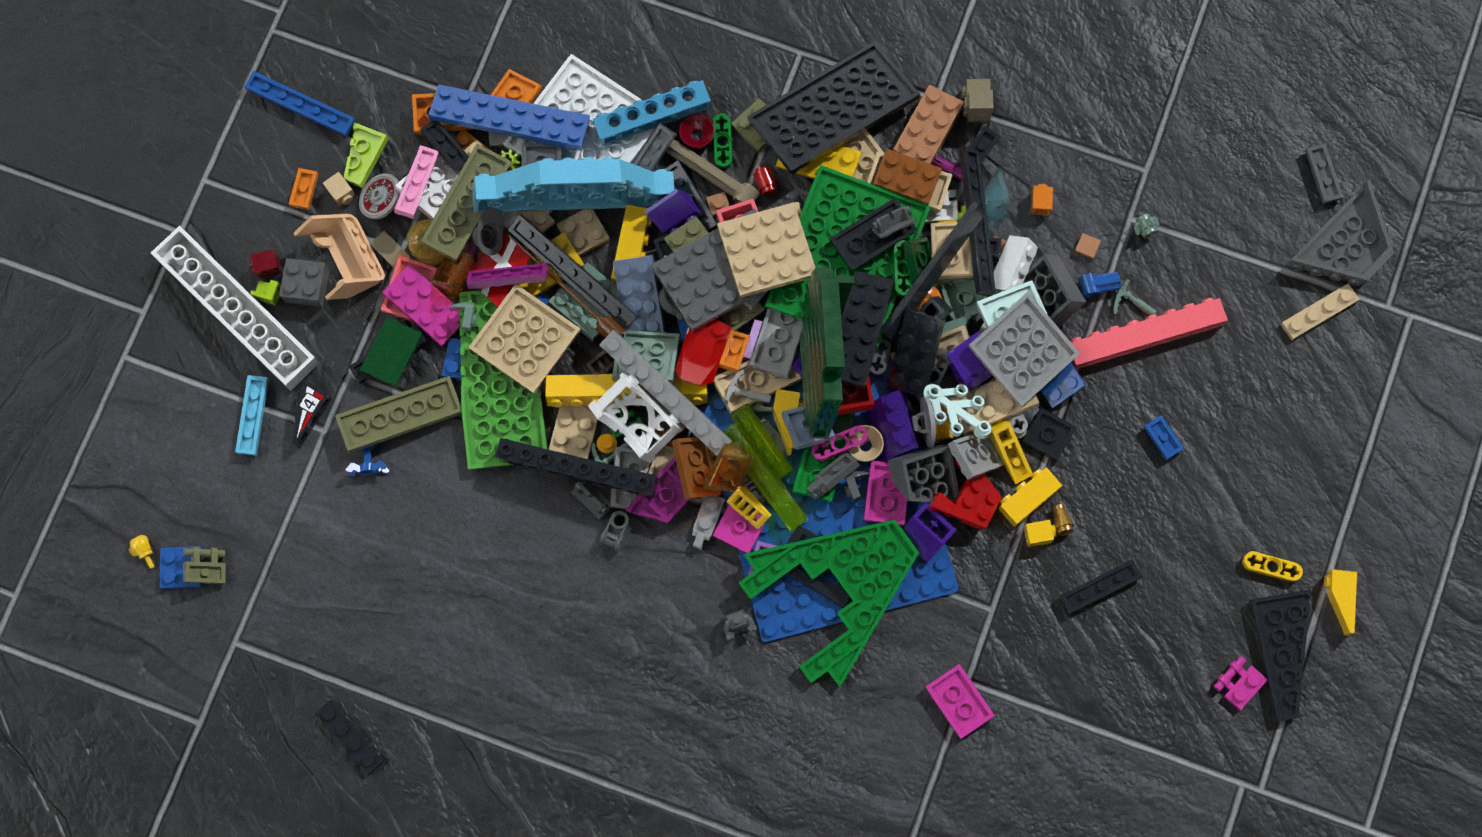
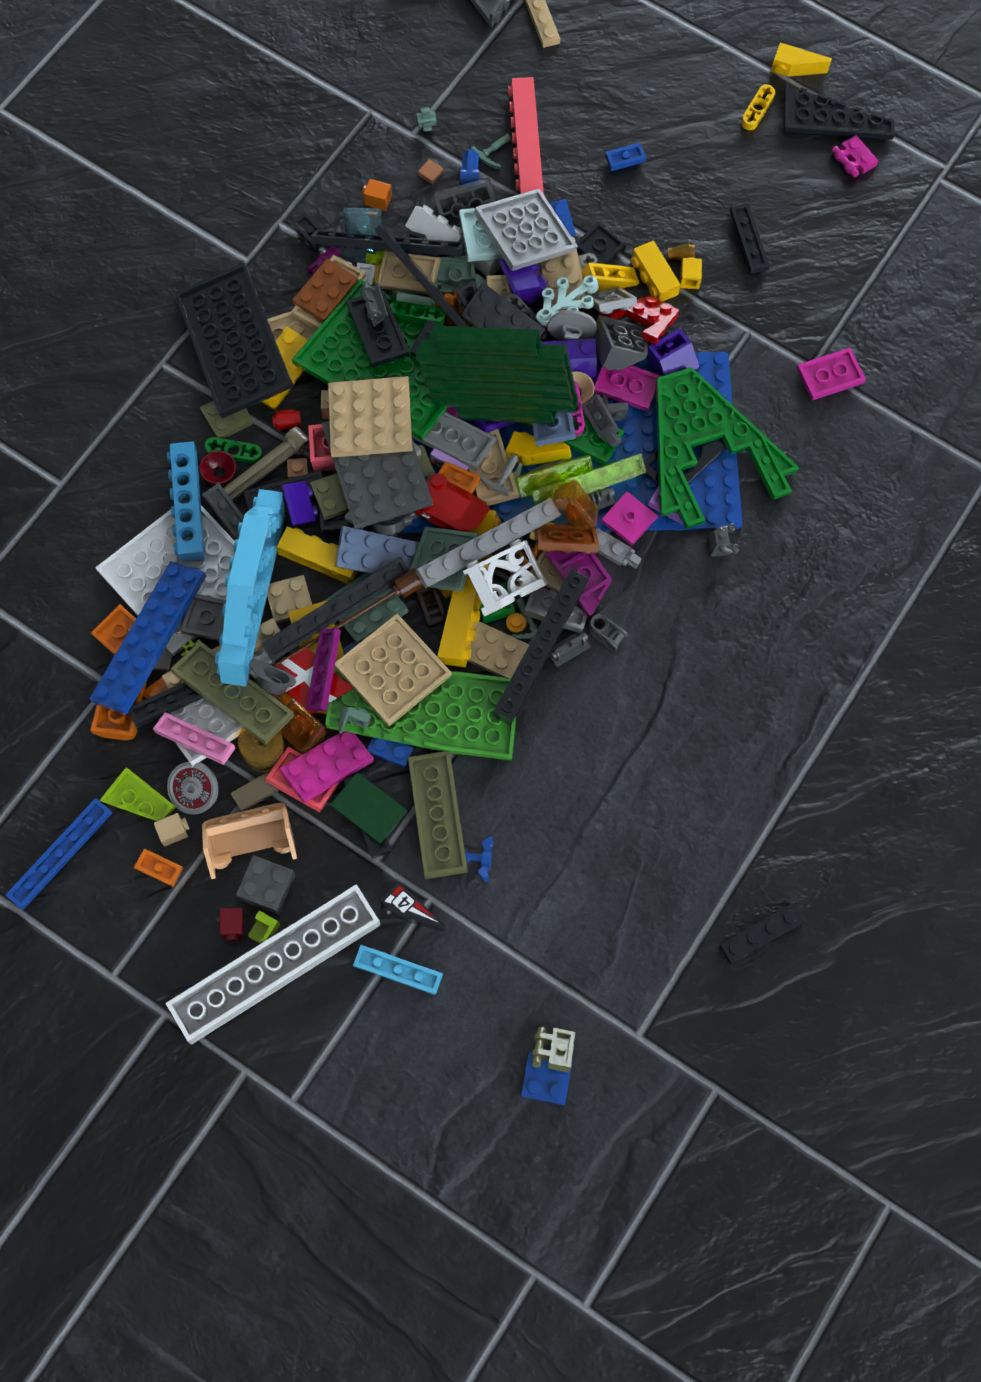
camera: 85 degrees left, 5 degrees down
(140, 547) = (514, 1118): yellow piece -> none
(744, 511) = (607, 513): yellow slope -> none
(929, 125) = (276, 266): nougat brick -> none
(977, 100) = (265, 220): dark tan brick -> none

